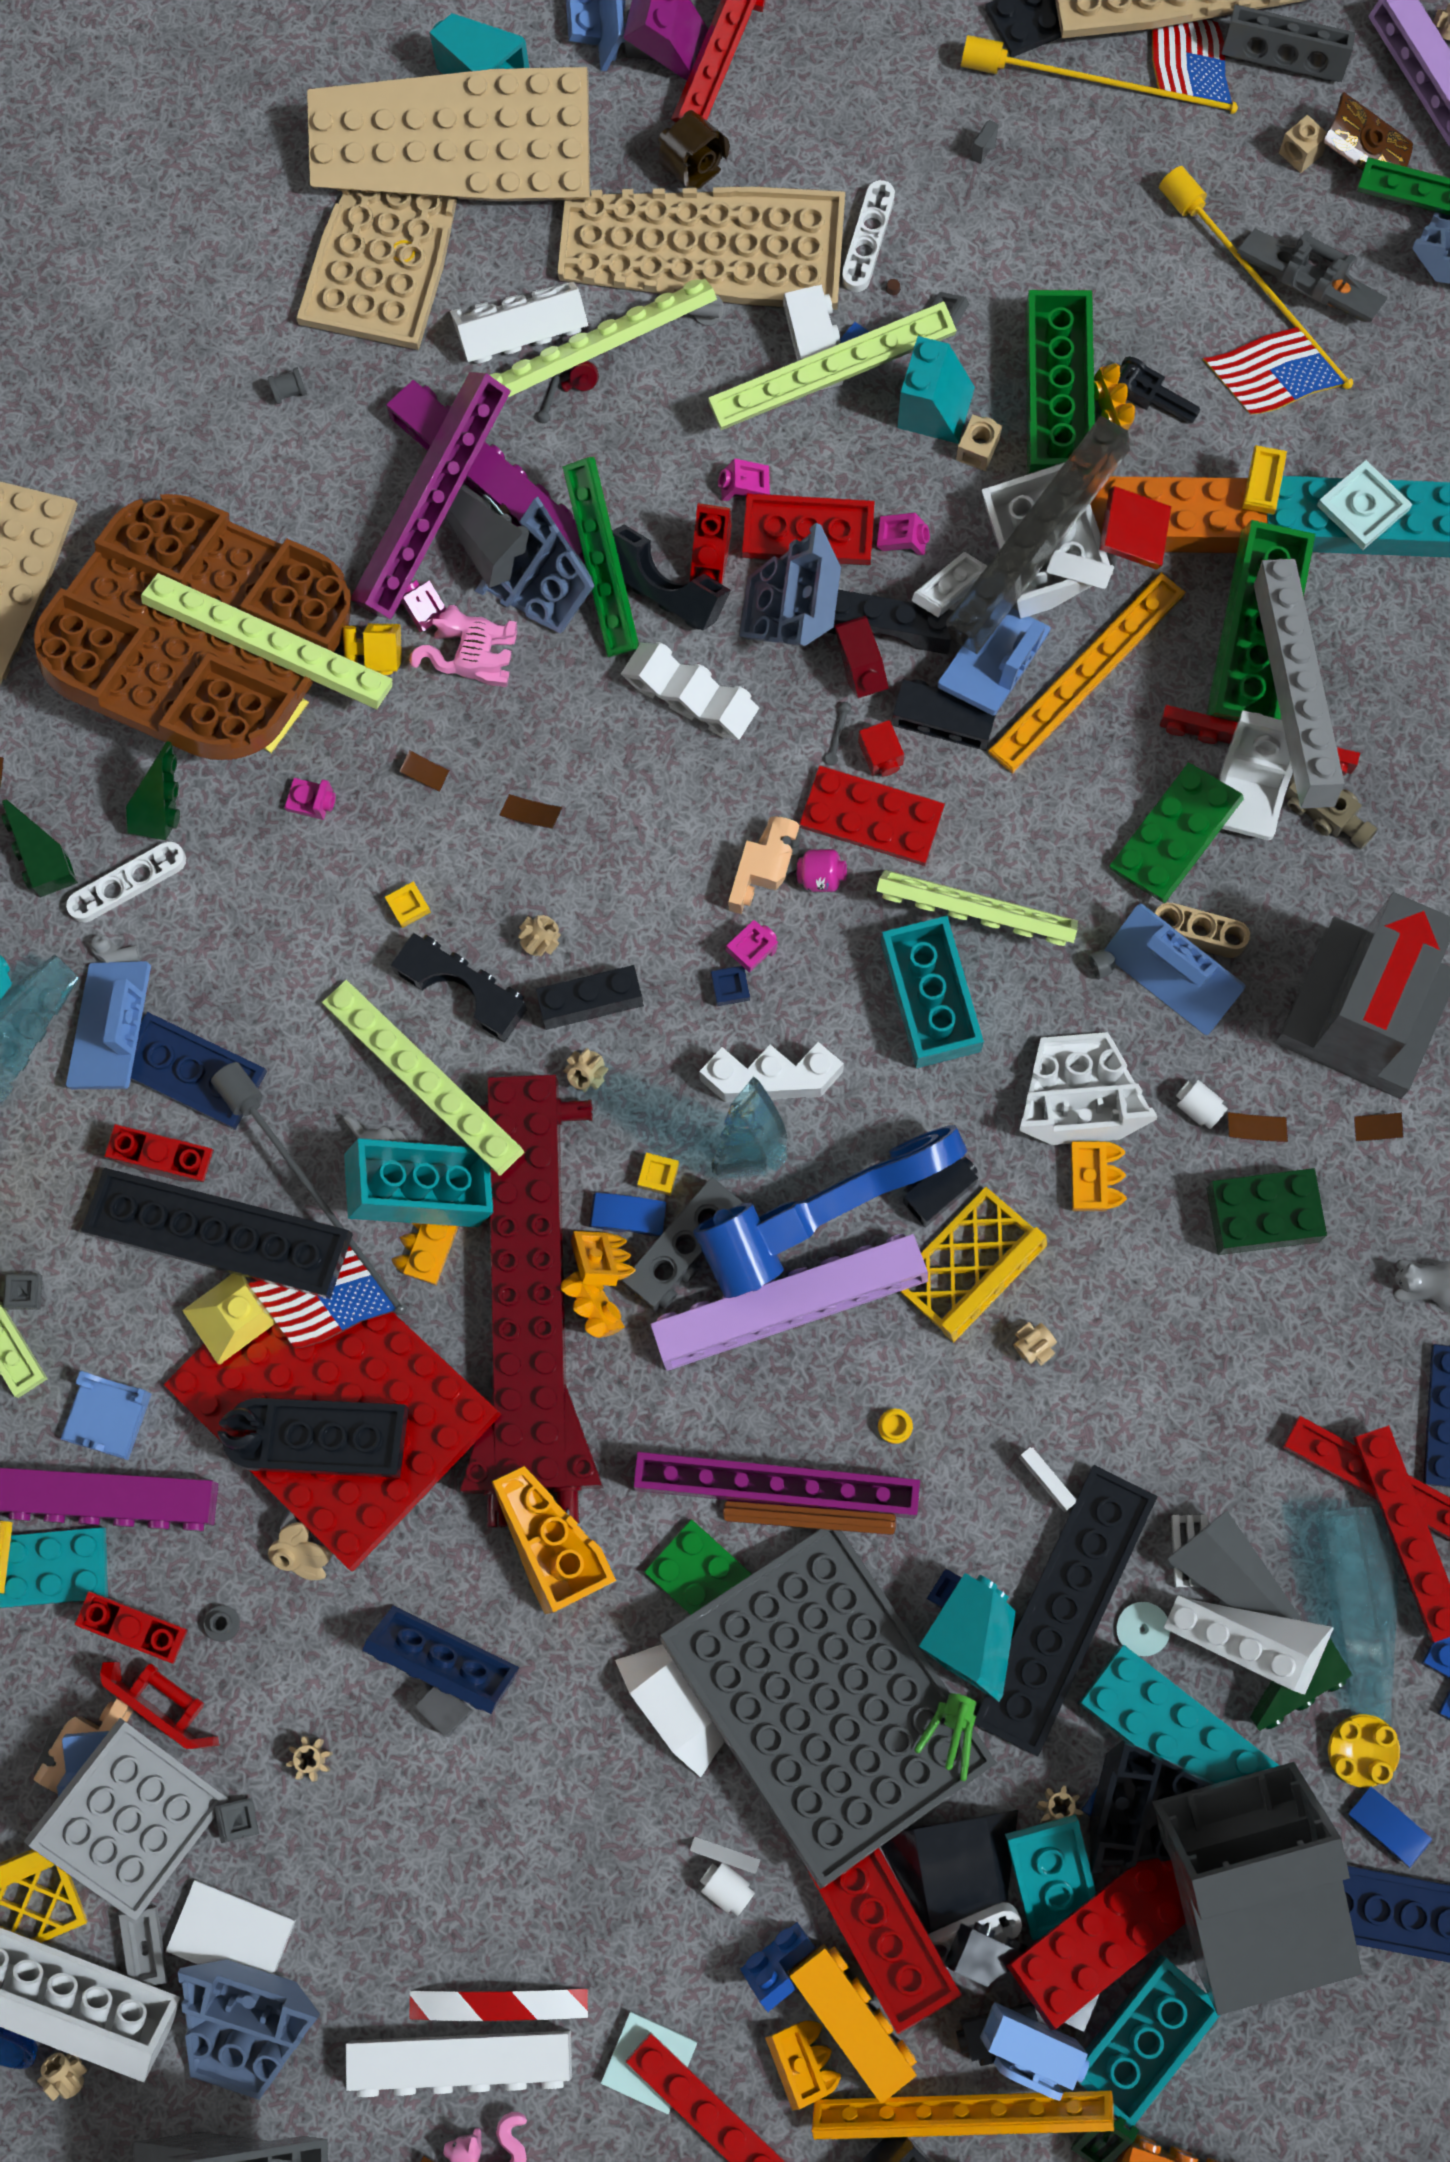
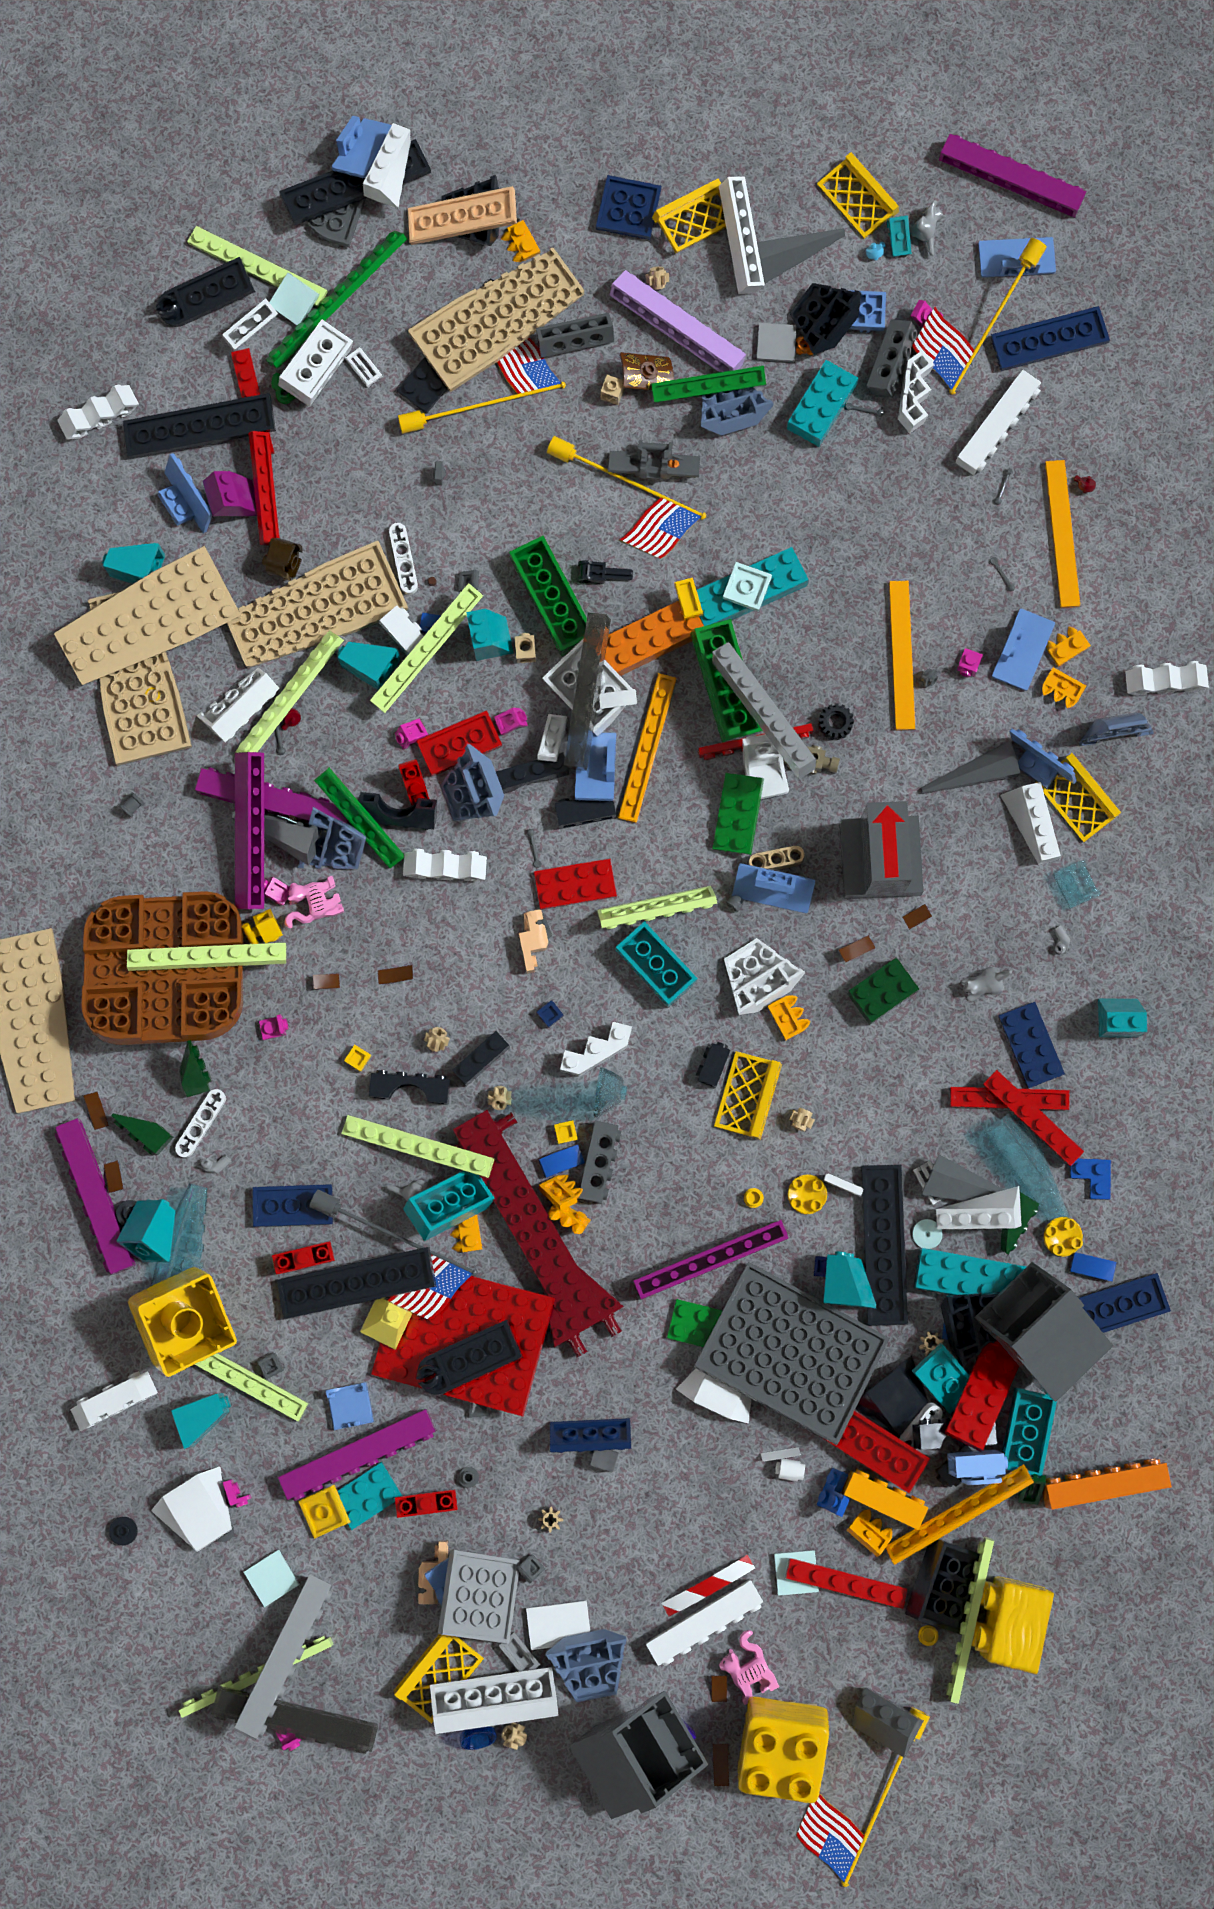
camera: 30 degrees left, 5 degrees up
(108, 1025) = (236, 1204): medium blue bracket -> none
(112, 1681) = (477, 1525): red piece -> none
(298, 1555) = (487, 1422): tan plate -> none
(552, 1547) = (618, 1352): light orange wedge -> none
(736, 344) = (369, 662): none -> teal slope
(746, 1246) = (632, 1147): blue piece -> none
(753, 945) = (551, 987): dark pink bracket -> none
(790, 1301) = (668, 1163): lavender brick -> none
(810, 1517) = (735, 1267): dark orange axle -> none
(821, 870) = (565, 928): dark pink head -> none
(861, 657) = (526, 803): dark red slope -> none
(881, 749) = (562, 846): red brick -> none
(958, 1716) = (860, 1325): bright green plant -> none
(983, 1464) = (807, 1194): none -> yellow dish
(1113, 396) = (584, 590): light orange plate -> none
(1135, 527) = (635, 661): red tile -> none
(1200, 1103) = (822, 951): white brick -> none
(1399, 754) = (843, 713): none -> black tyre

